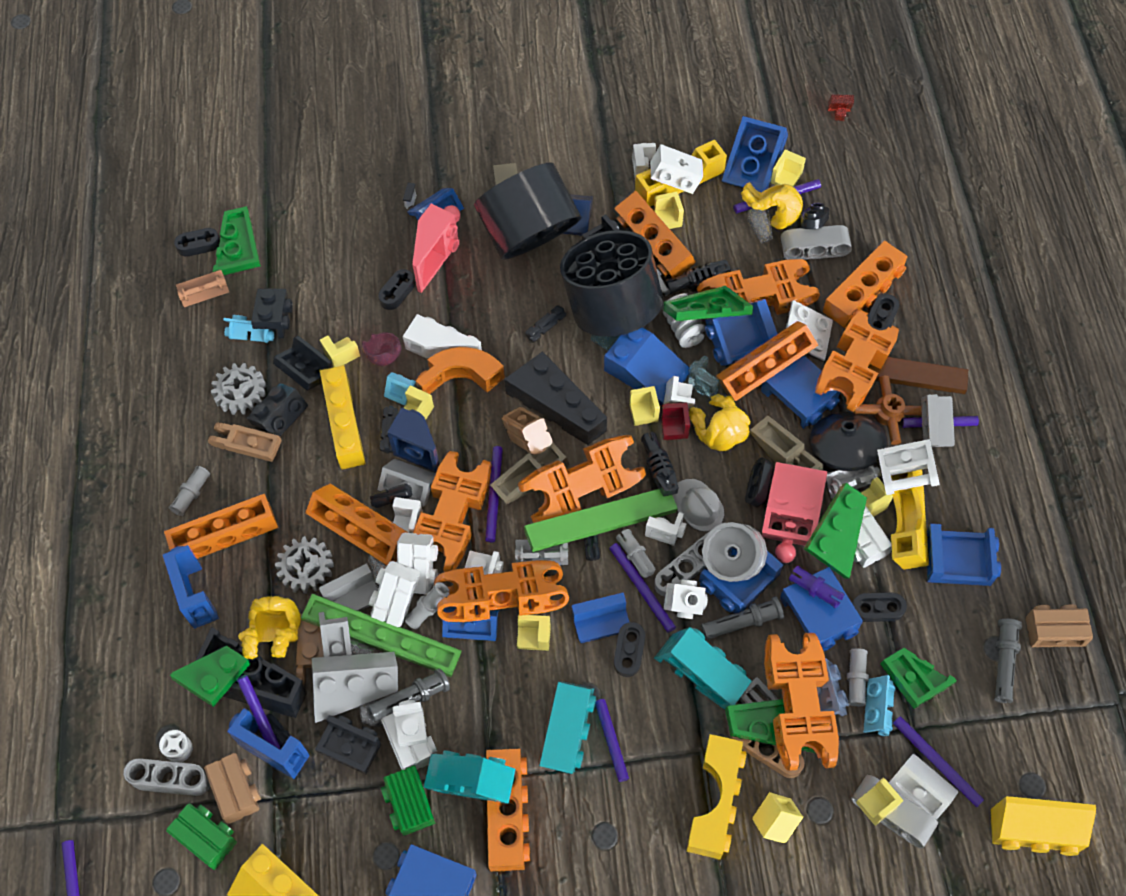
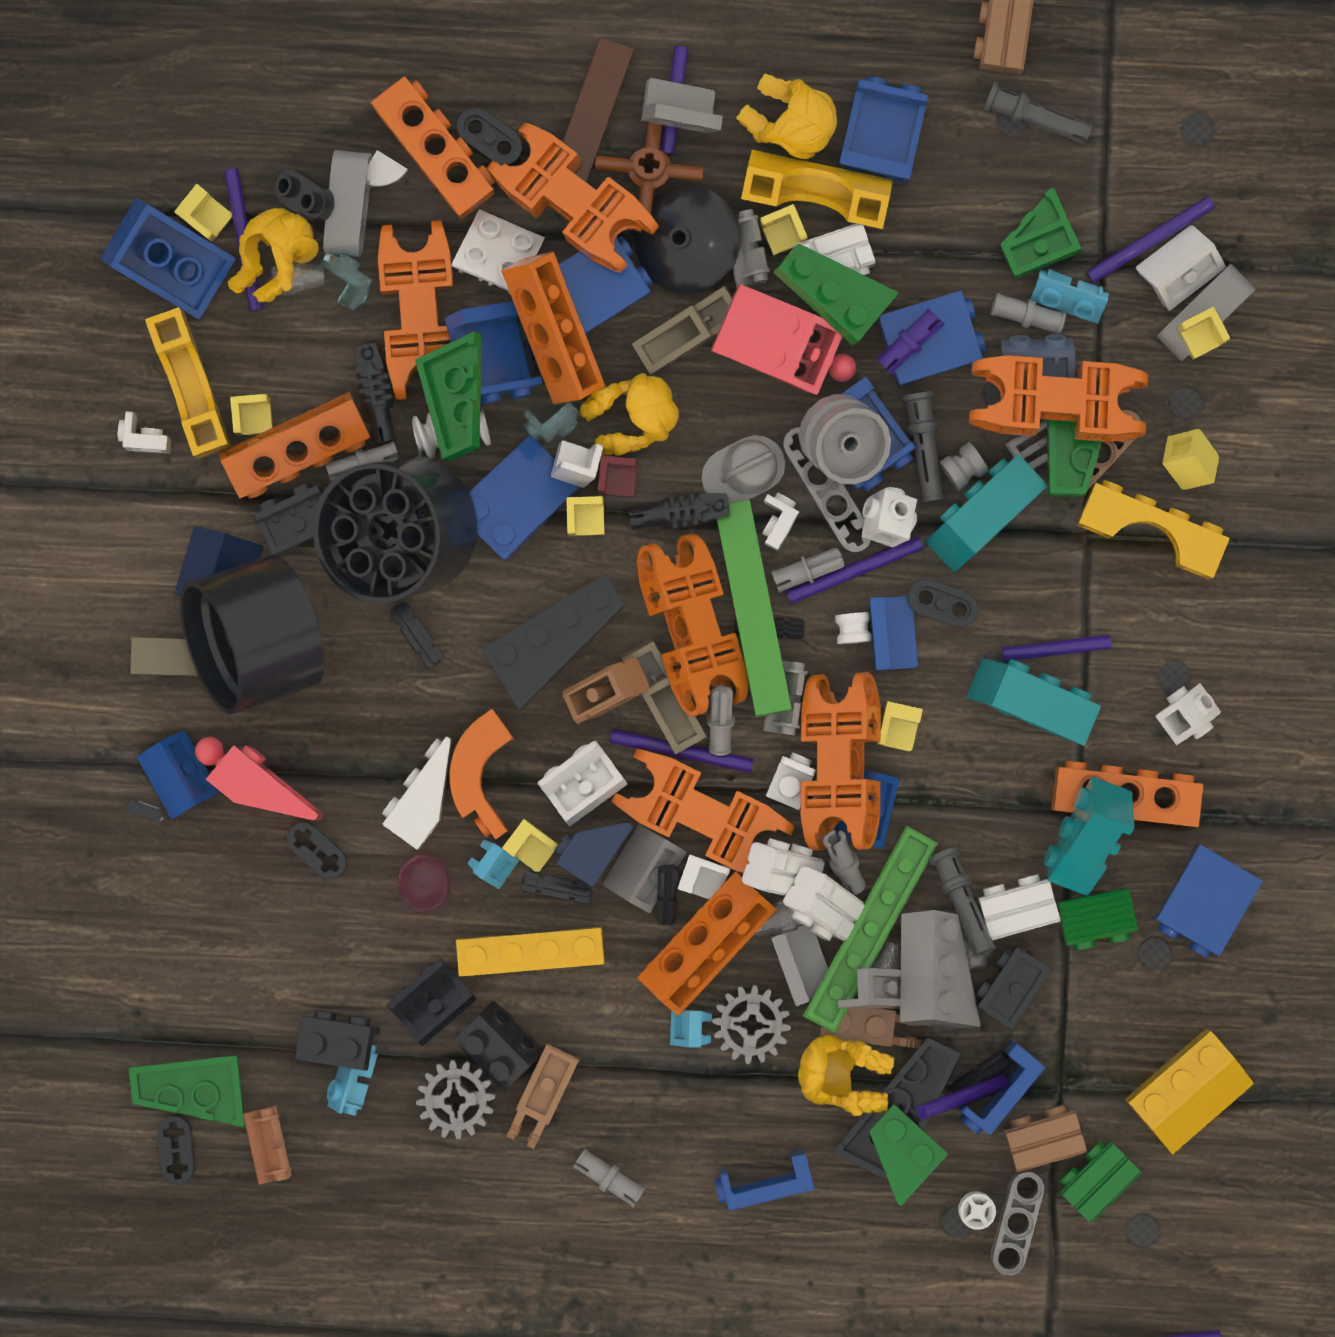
camera: 75 degrees left, 25 degrees up
(224, 527) = (684, 1134): orange brick -> none
(298, 523) = (687, 1028): none -> medium azure tile
(340, 352) = (412, 945): light yellow panel -> none
(410, 723) = (1009, 902): white bracket -> none
(462, 431) = (582, 782): none -> white bracket
(518, 509) = (720, 721): none -> light grey axle
(577, 845) = (1188, 713): none -> white brick
(599, 588) = (853, 628): none -> white wheel
(676, 169) = (198, 391): white brick -> none
(732, 646) = (962, 467): none -> light grey wheel
(759, 482) = (731, 378): black plate -> none
(773, 245) = (346, 269): none -> clear light blue bracket
(841, 105) = (90, 99): clear red tile -> none
(842, 262) = (384, 170): none -> white tile
(877, 606) = (936, 261): black plate -> none
(907, 459) = (751, 175): white plate -> none
(954, 497) = (802, 127): none -> yellow hair
(1042, 825) = (1256, 139): yellow slope -> none

